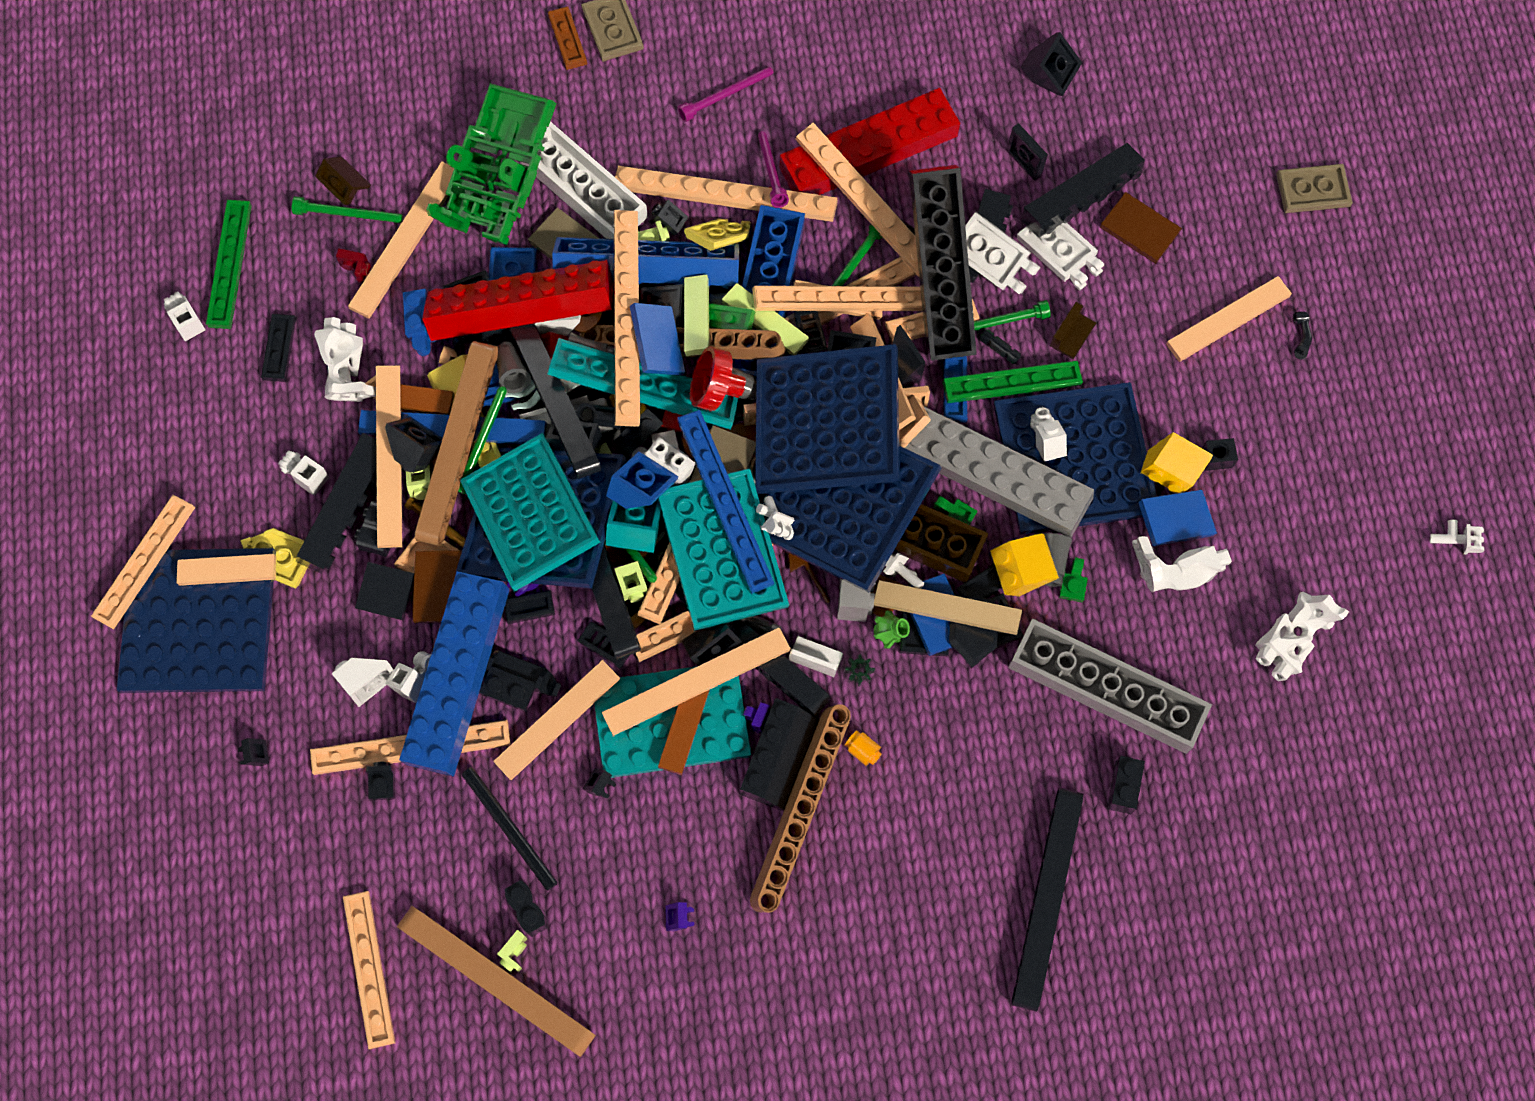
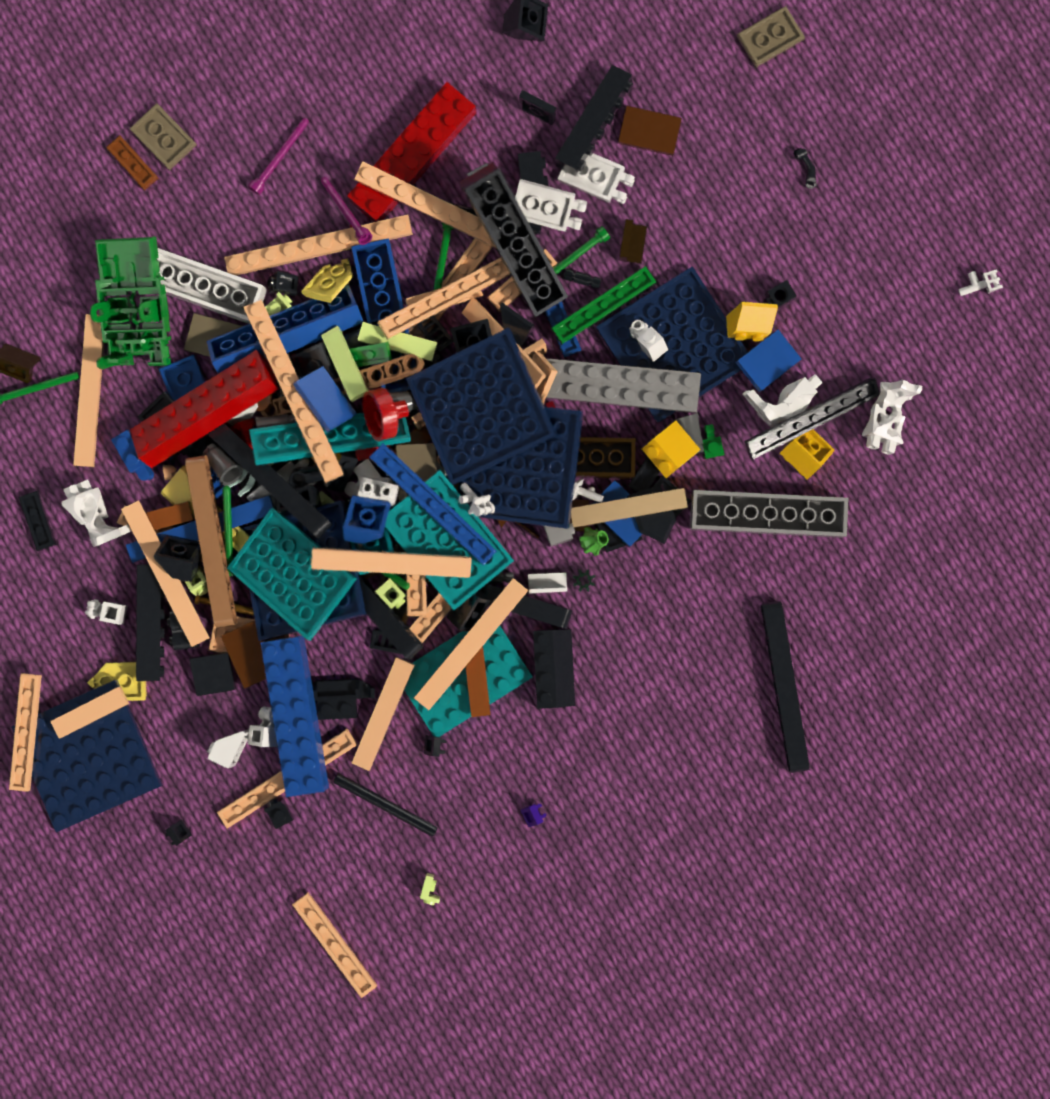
camera: 20 degrees left, 15 degrees up
(354, 261) = (57, 429): dark red bracket -> none
(496, 981) = (426, 914): medium nougat beam -> none
(528, 913) = (428, 859): black brick -> none
(529, 607) = (323, 638): black tile -> none
(648, 540) = (391, 562): none -> light nougat tile
(757, 716) = (527, 647): dark purple tile -> none
(791, 814) = (590, 708): medium nougat beam -> none
(863, 748) = (611, 637): light orange brick -> none
(957, 511) = (606, 428): green plate -> none
(1125, 785) = (808, 581): black brick -> none
(1182, 637) = (807, 453): none -> yellow slope
(1204, 598) = (812, 418): none -> tile
(1228, 319) = (746, 178): light nougat tile -> none

